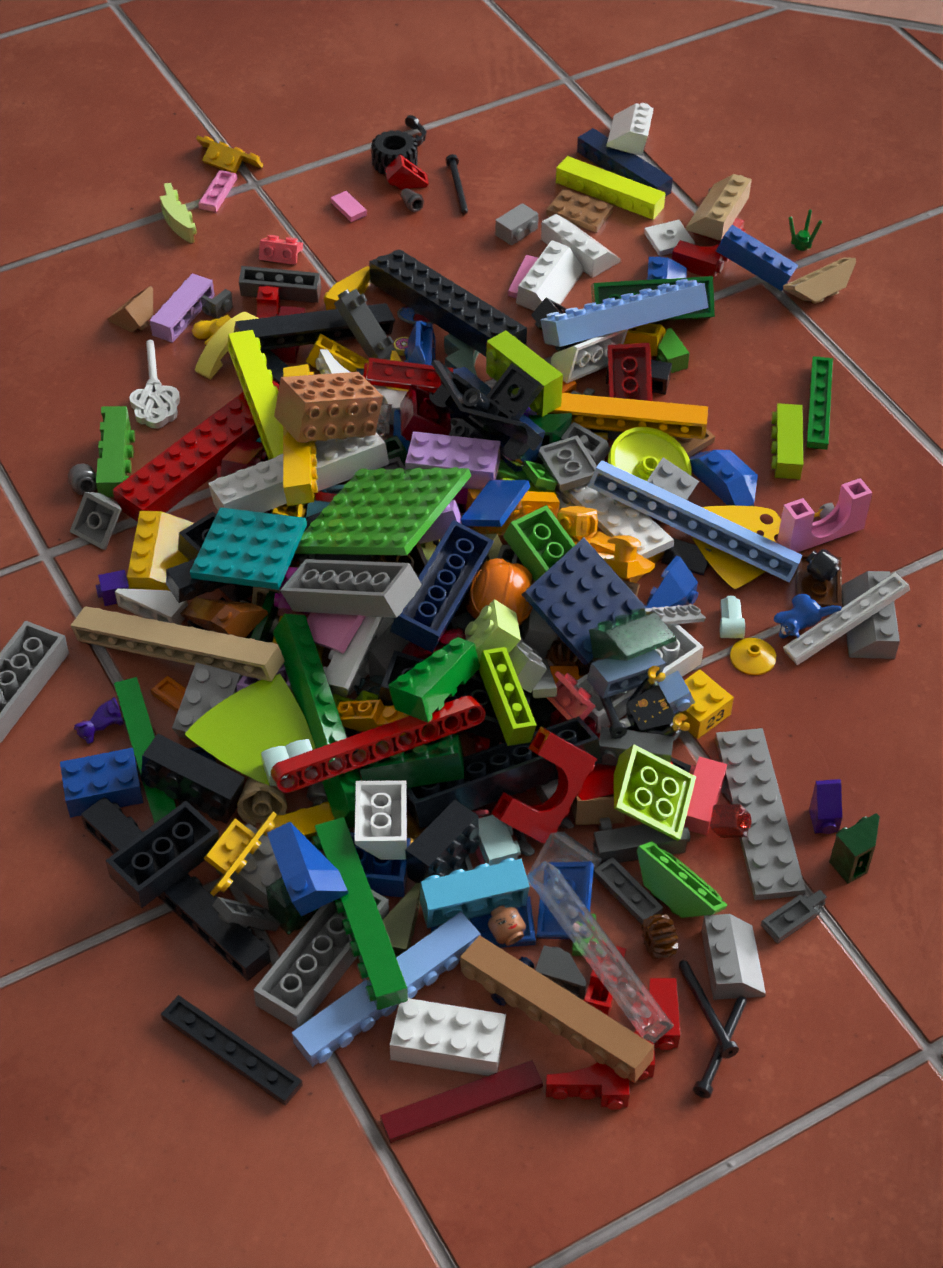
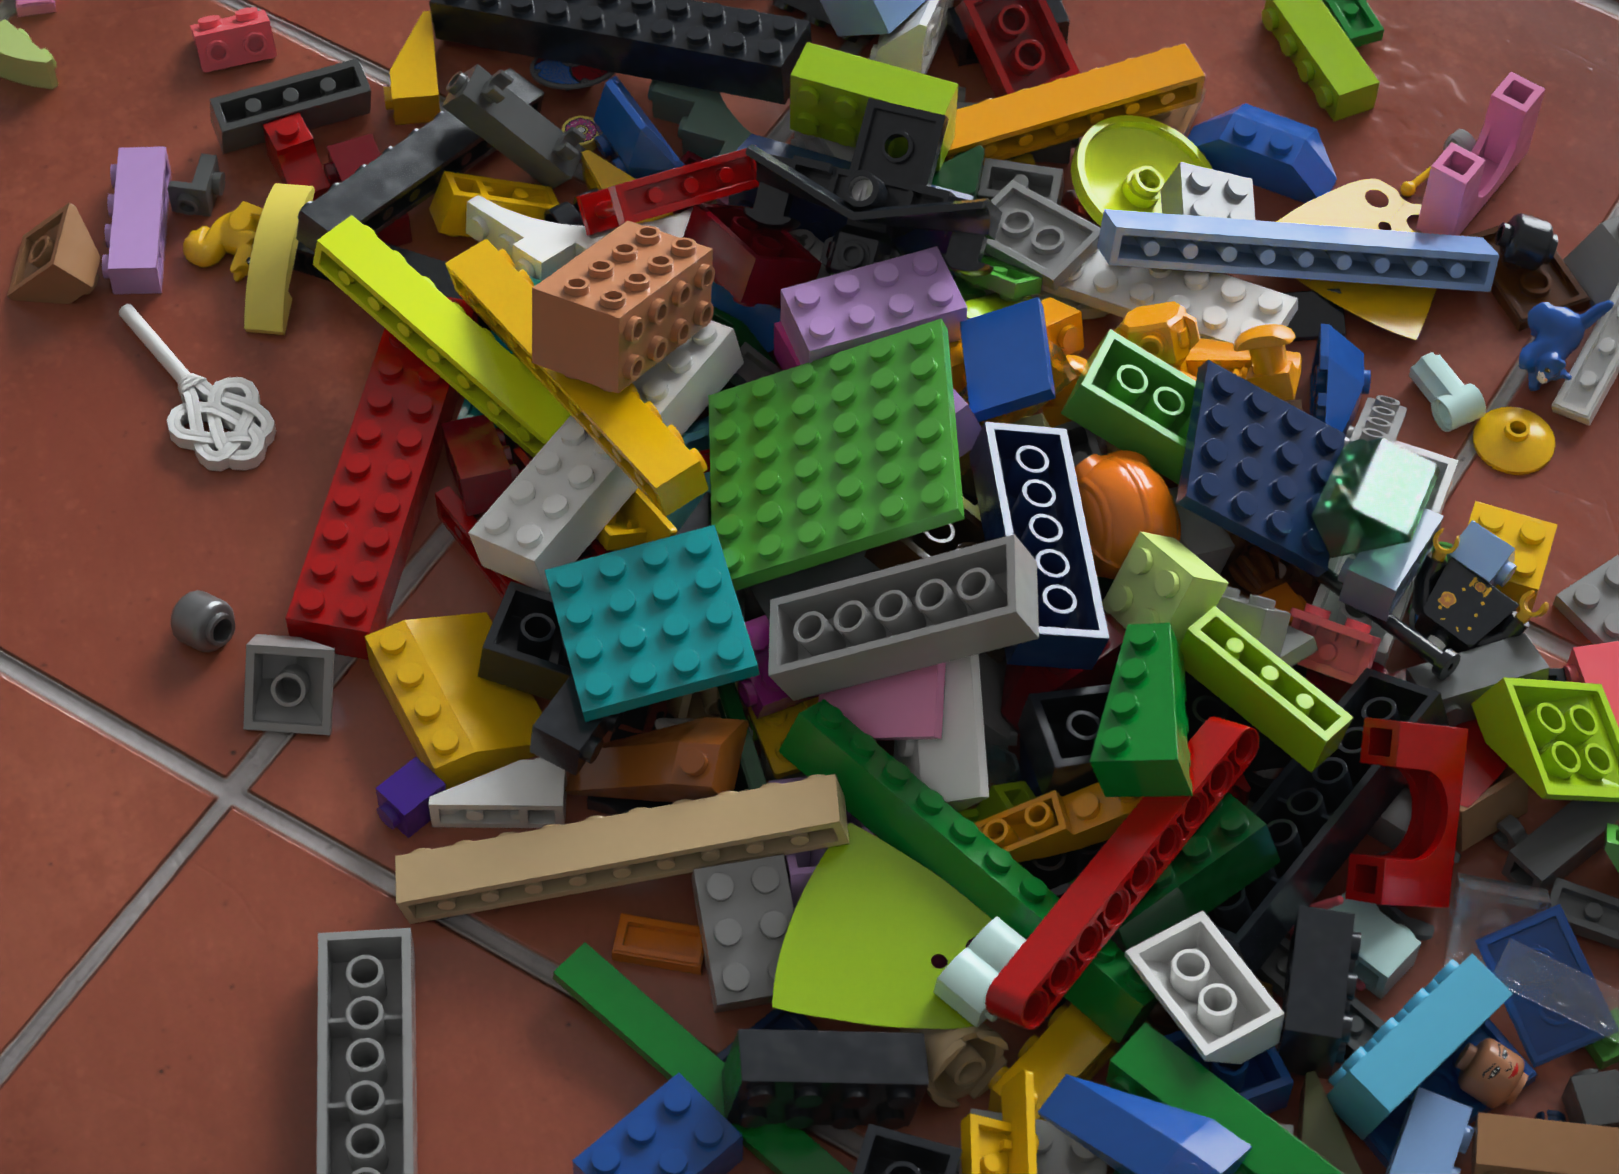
camera: 30 degrees left, 5 degrees up
(104, 716) = (572, 1043): dark purple animal -> none
(114, 449) = (227, 546): bright green wedge -> none

